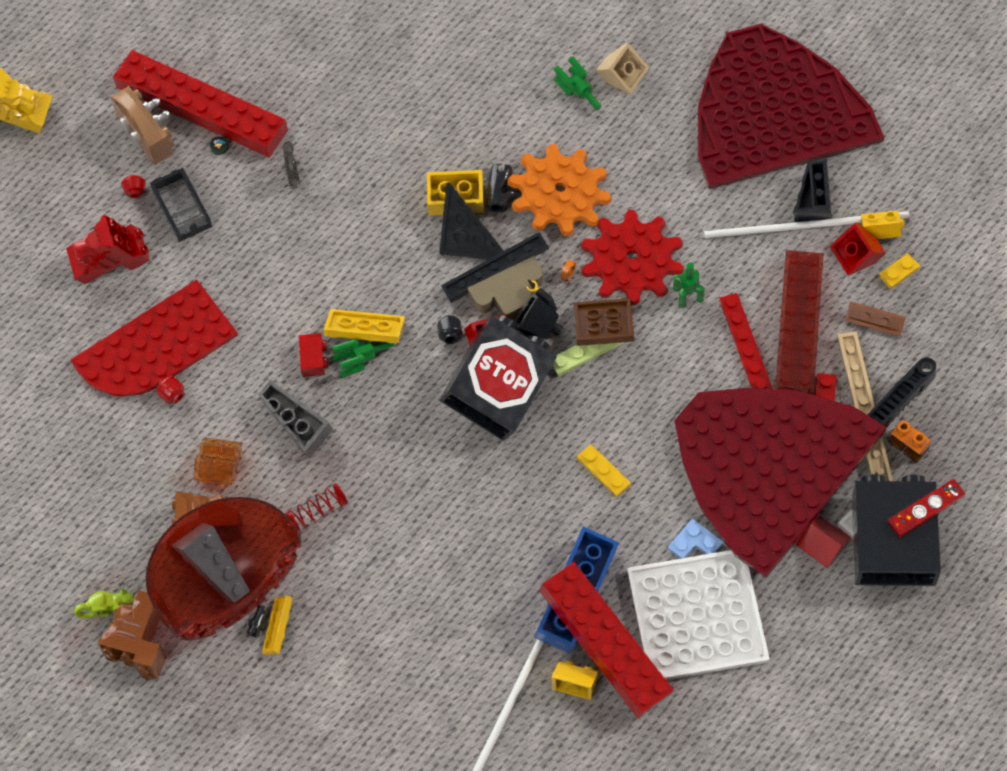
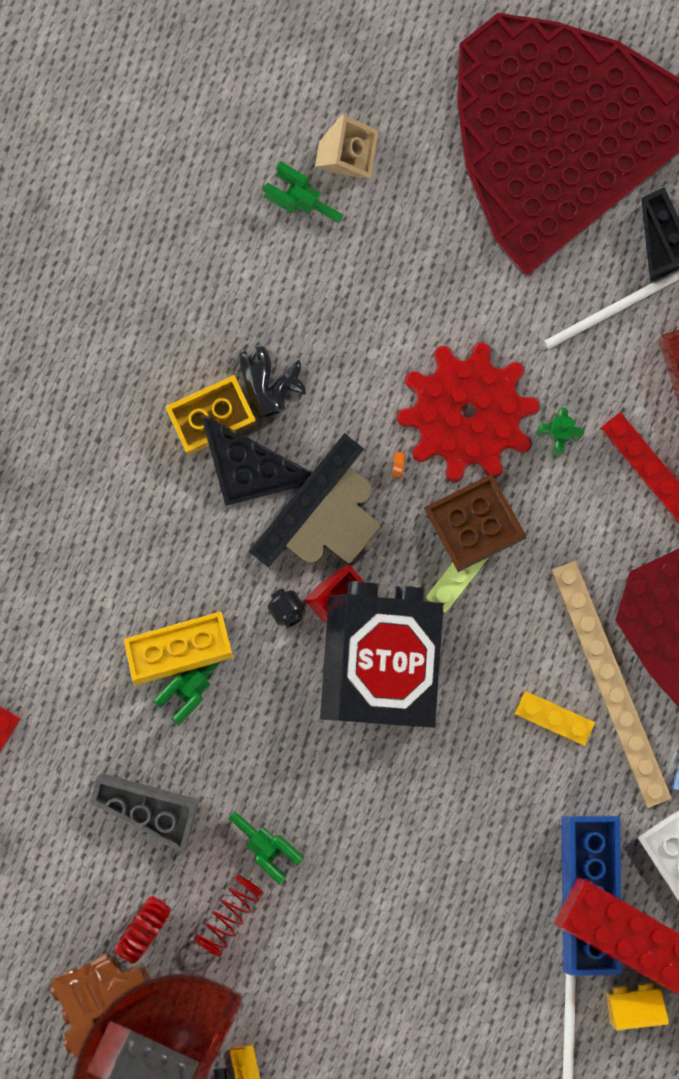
camera: 25 degrees left, 20 degrees up
(217, 461) = (77, 903): clear orange piece -> none
(256, 484) = (142, 929): none -> red gear
(312, 355) = (130, 712): red brick -> none
(364, 474) = (267, 847): none -> green plant
(538, 315) = (390, 549): black torso -> none
(558, 207) = (336, 382): orange plate -> none
(654, 465) = (611, 684): none -> tan plate

